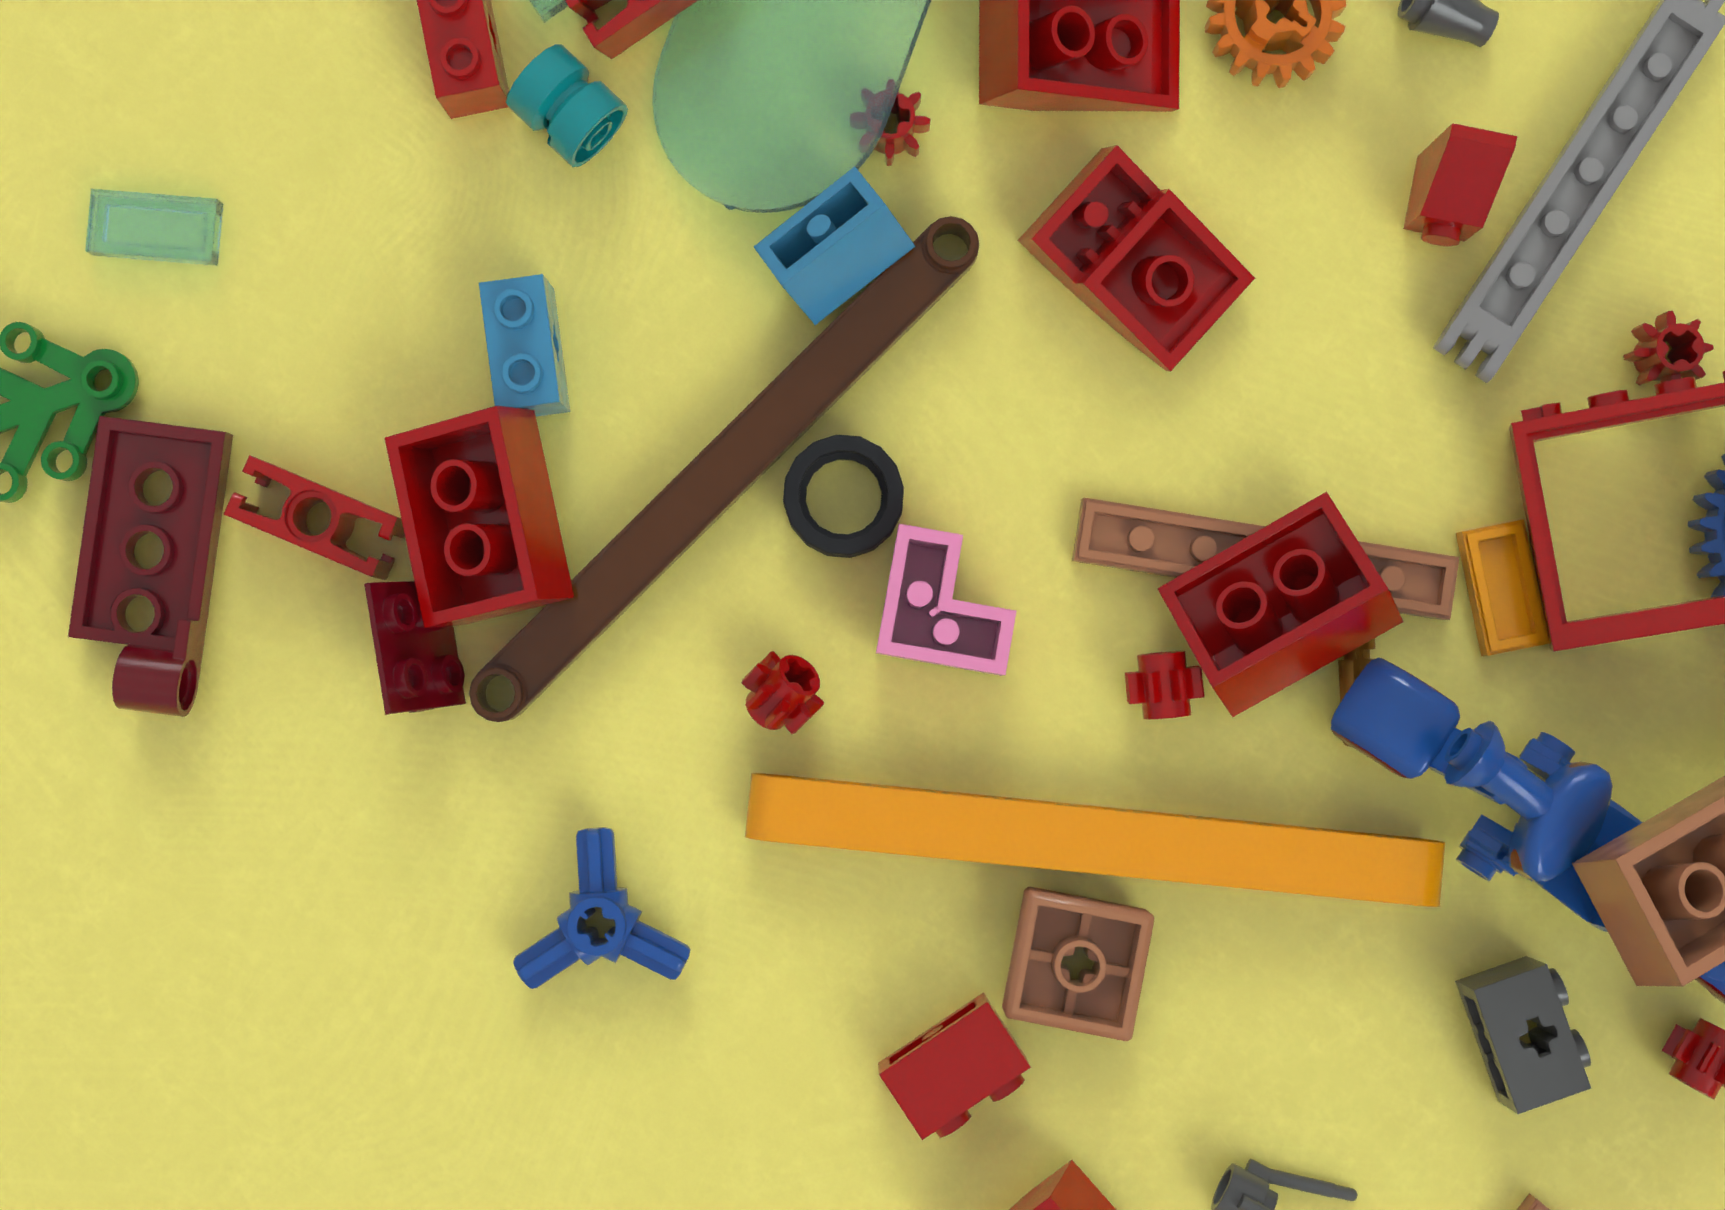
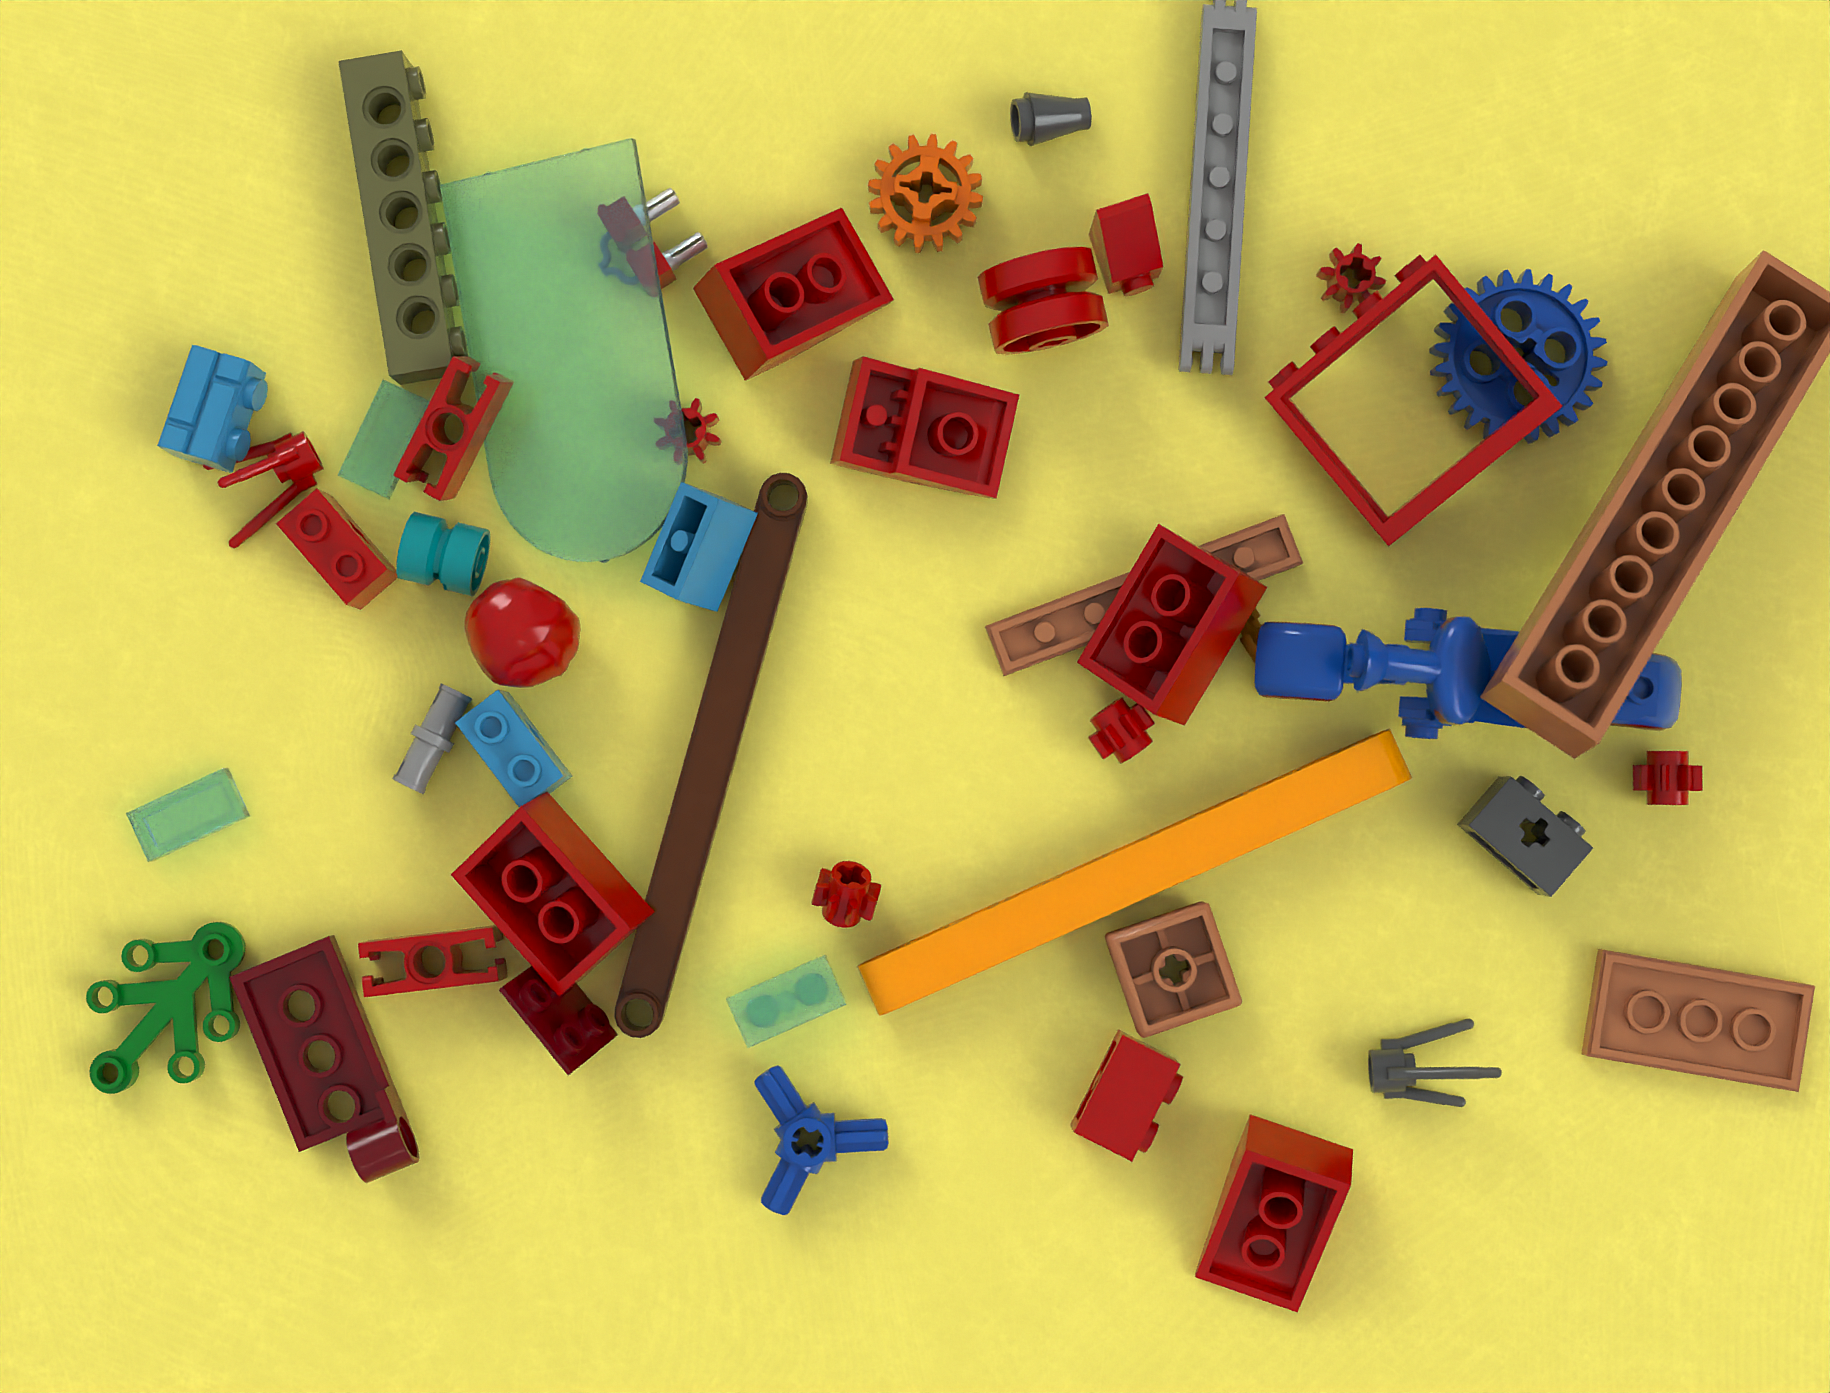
camera: 25 degrees left, 0 degrees up
(447, 290) = (432, 738): none -> light grey pin
(601, 231) = (521, 633): none -> red piece
(657, 767) = (786, 1001): none -> clear light blue plate
(843, 448) = (777, 701): black tyre -> none
(924, 620) = (920, 783): bright pink brick -> none
(1338, 191) = (1043, 300): none -> red wheel
(1502, 588) = (1328, 517): light orange tile -> none

